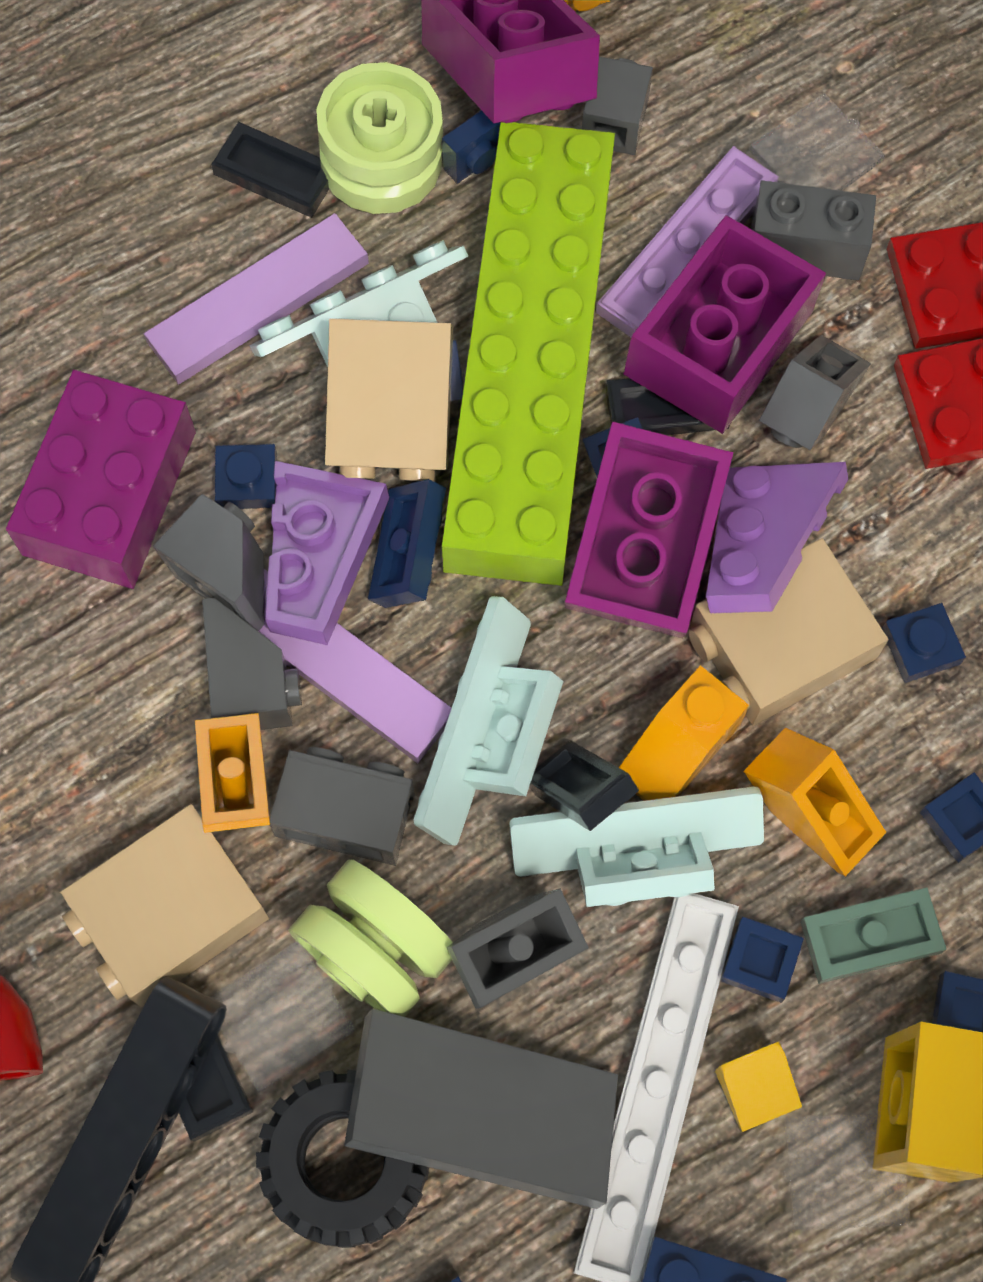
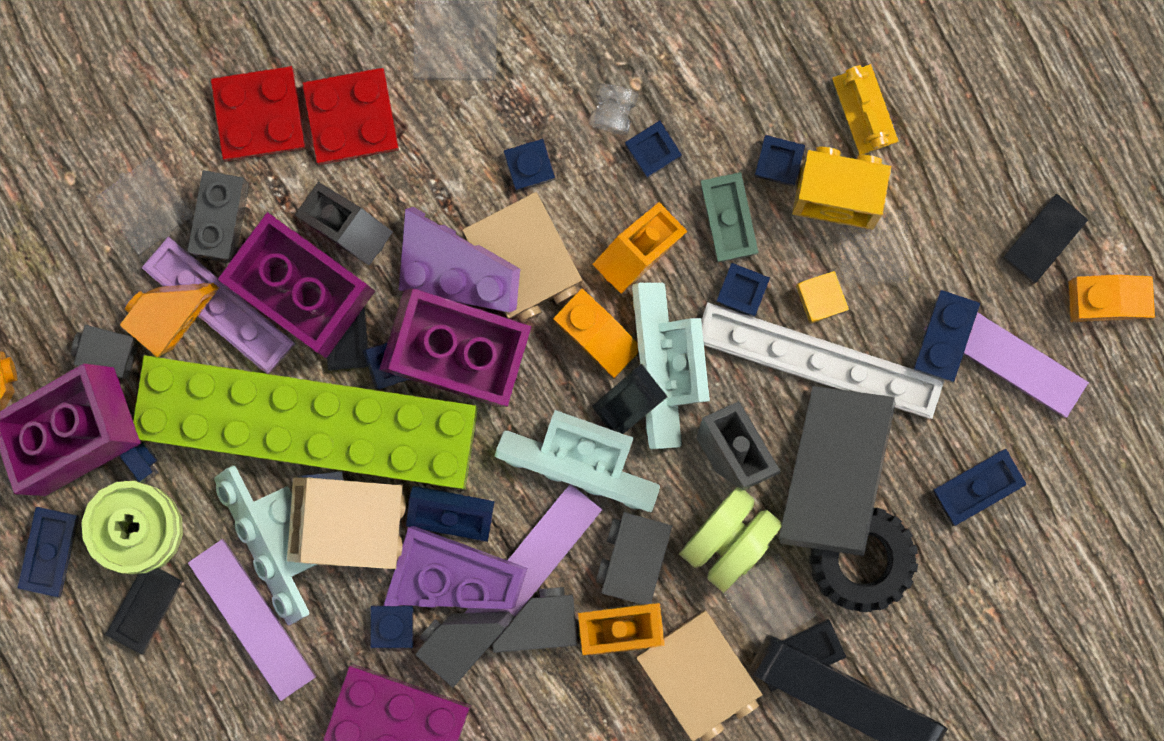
camera: 85 degrees left, 15 degrees up
(334, 45) = (48, 552): none -> dark blue plate
(669, 169) = (165, 314): none -> light orange slope

